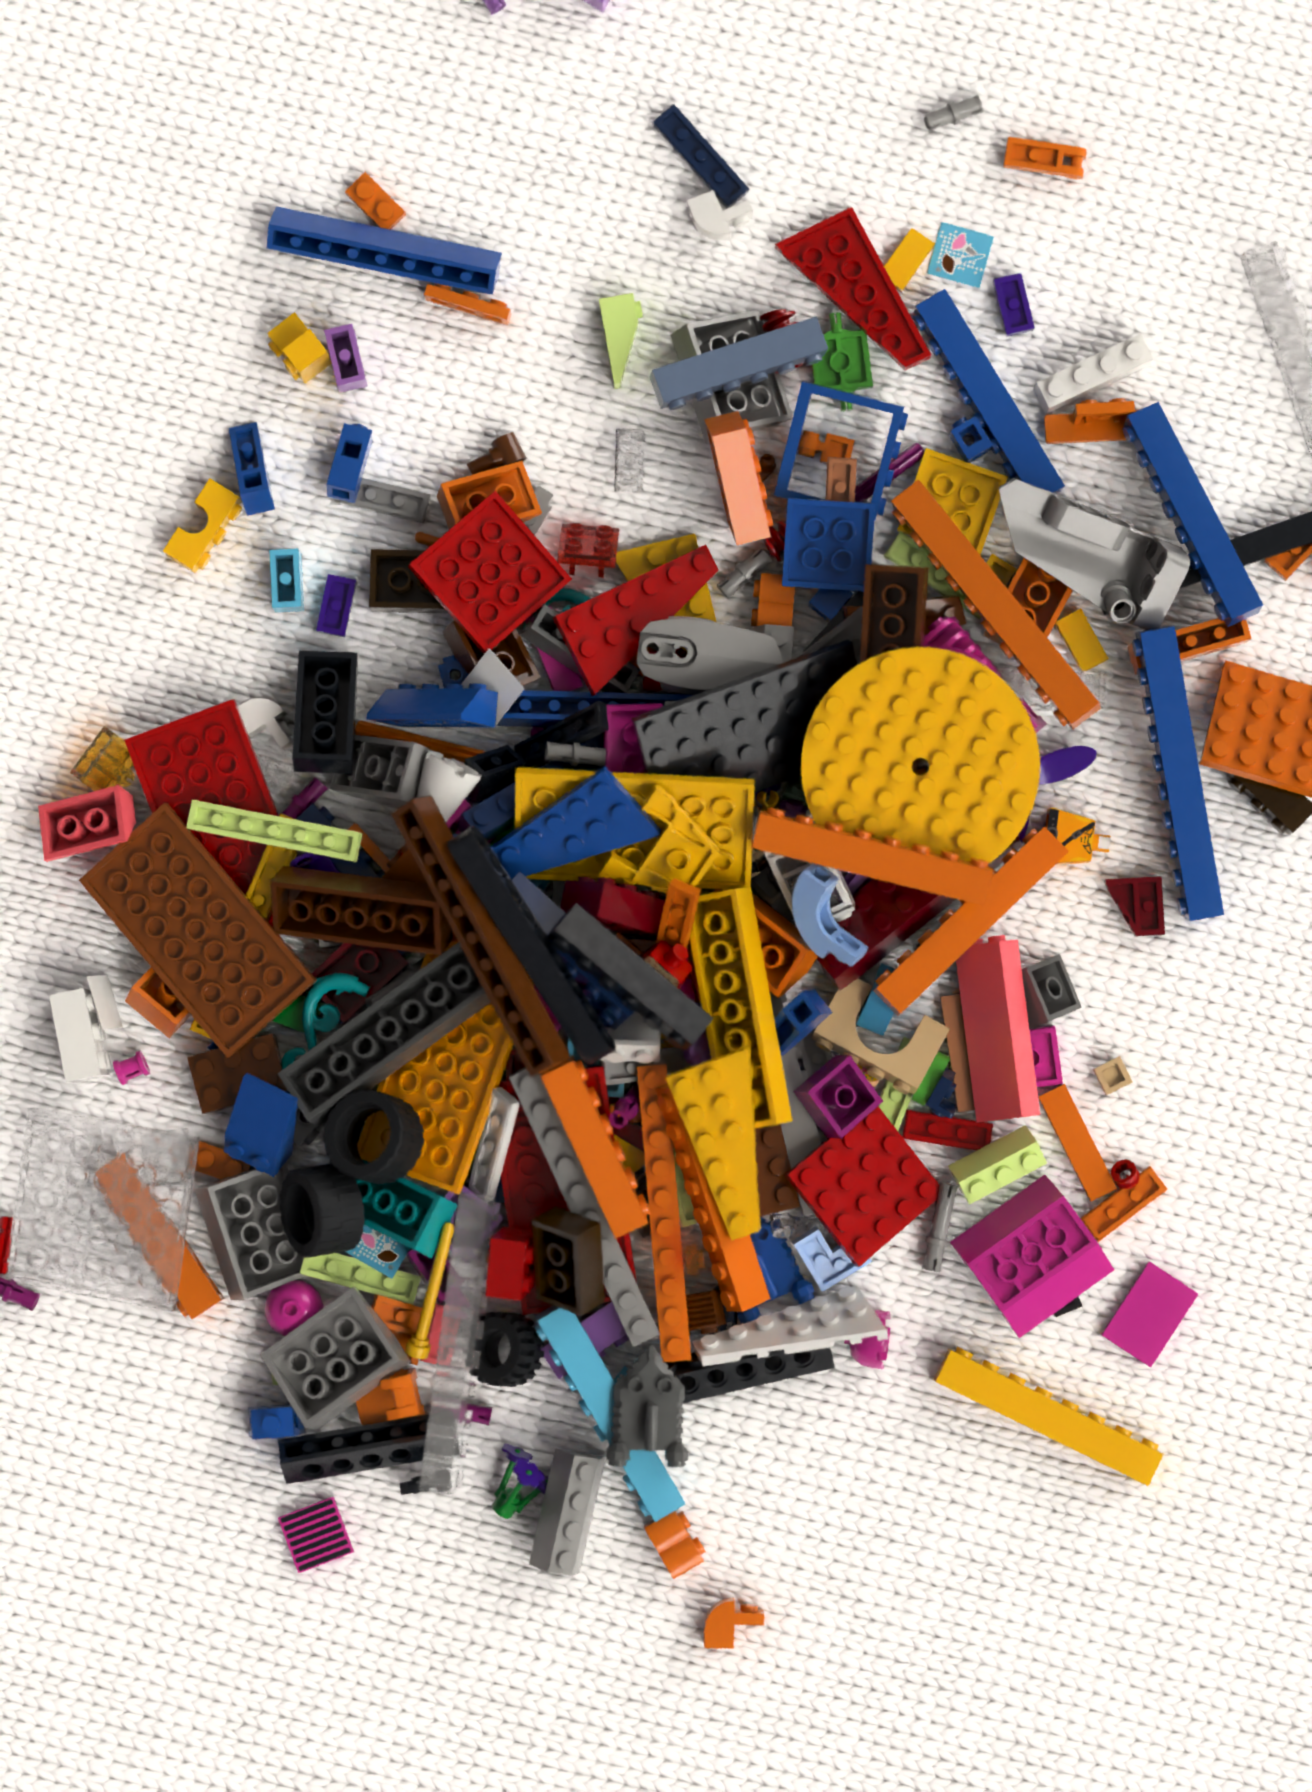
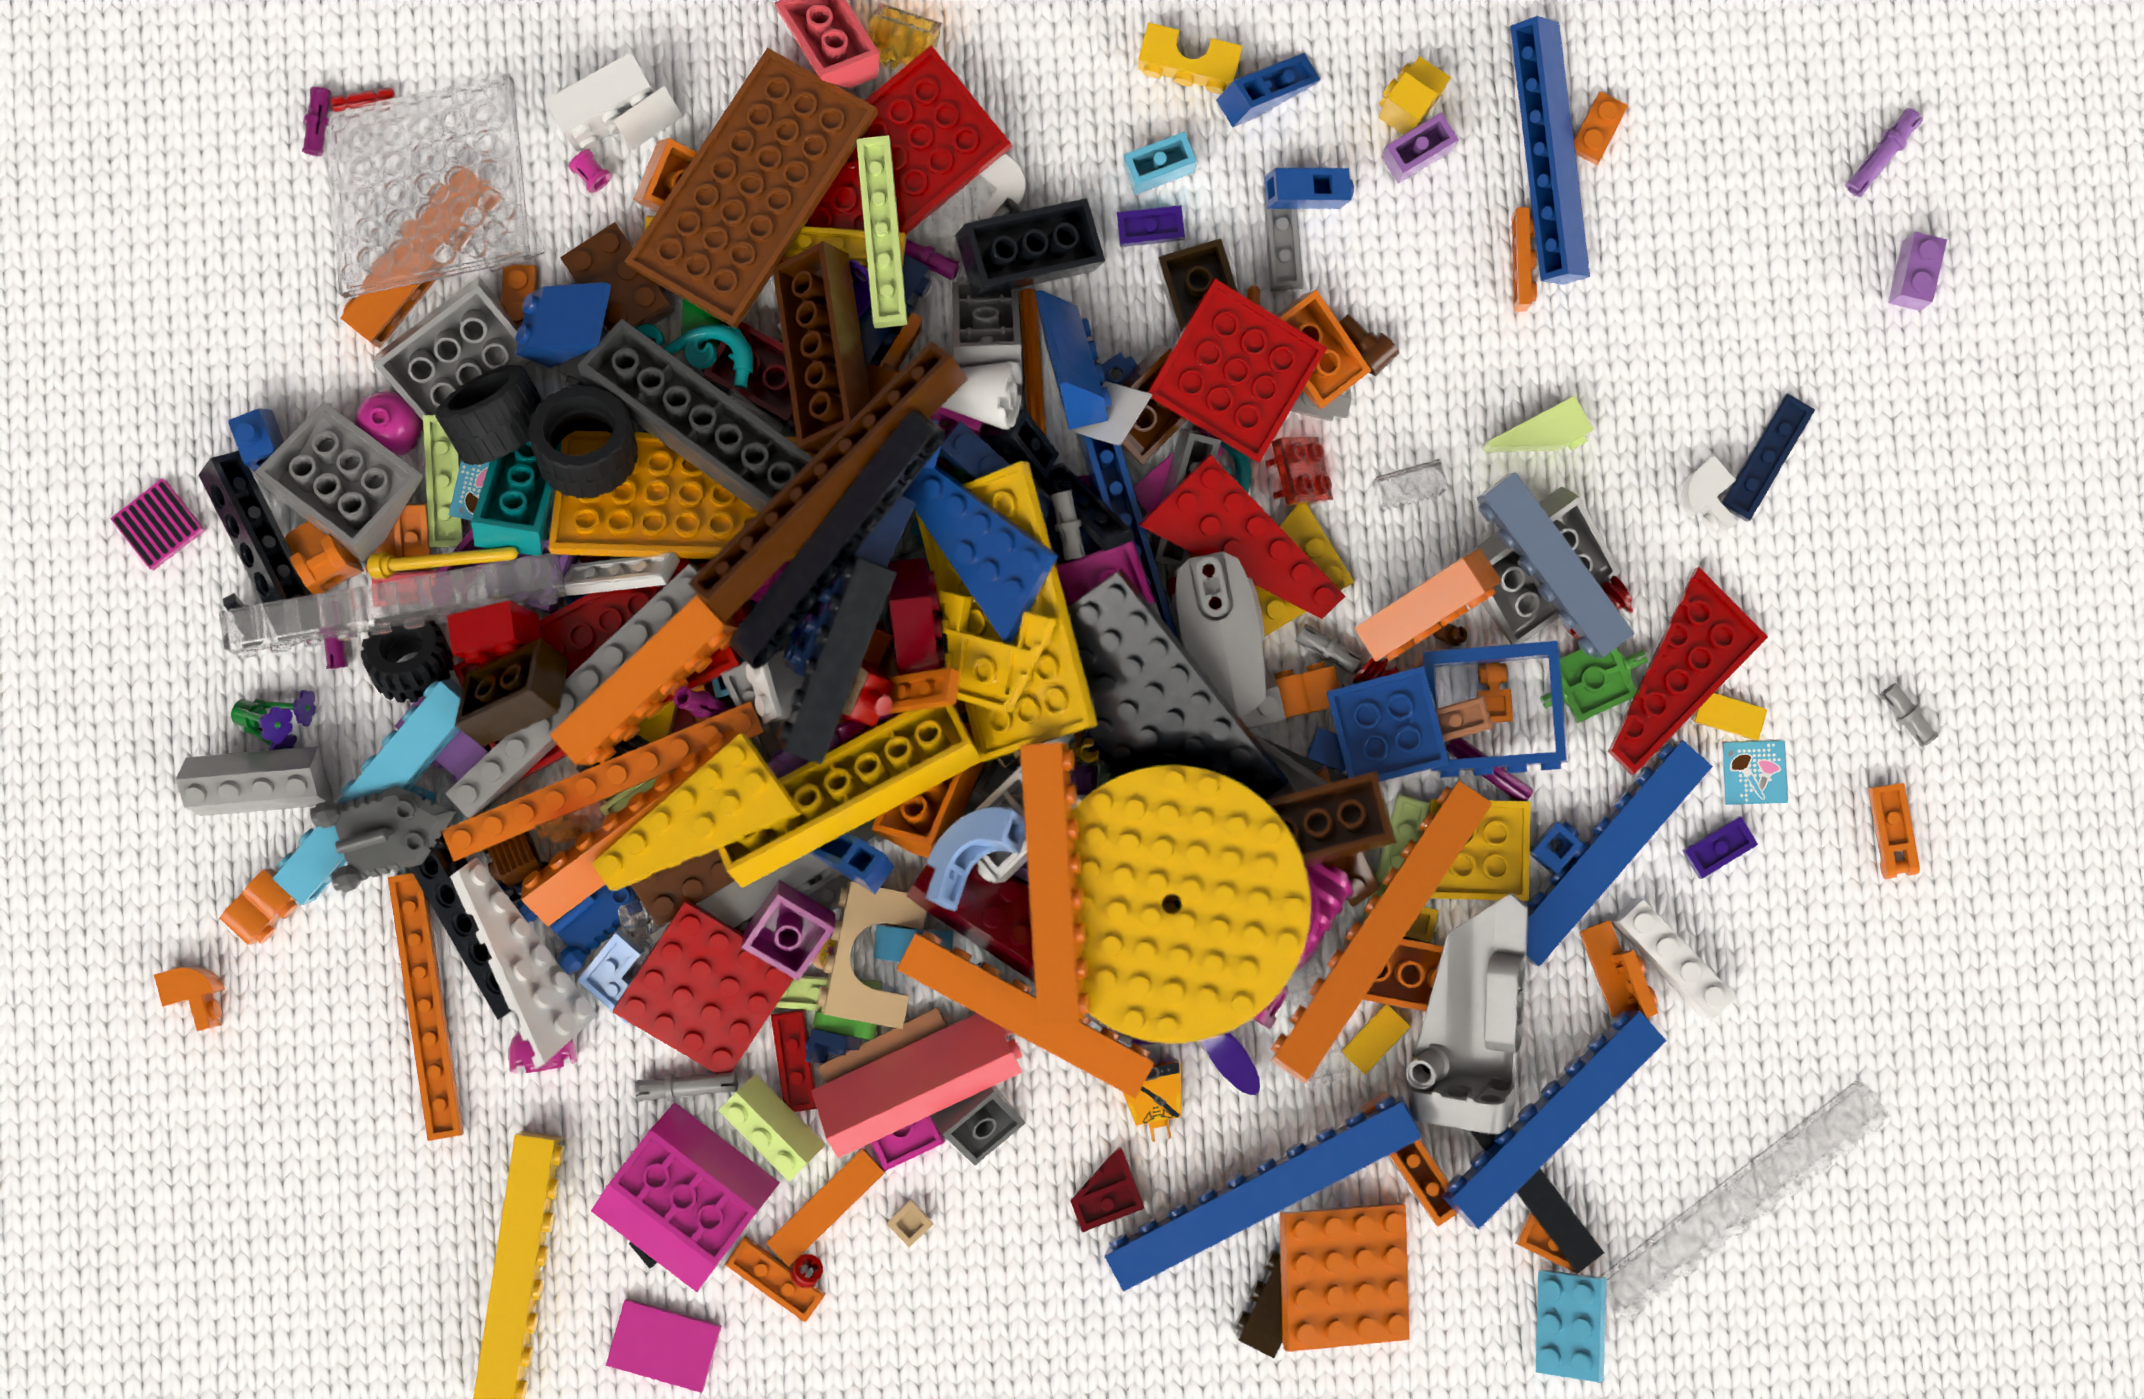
camera: 75 degrees right, 0 degrees up
(803, 1427) = (425, 1008): none -> orange plate

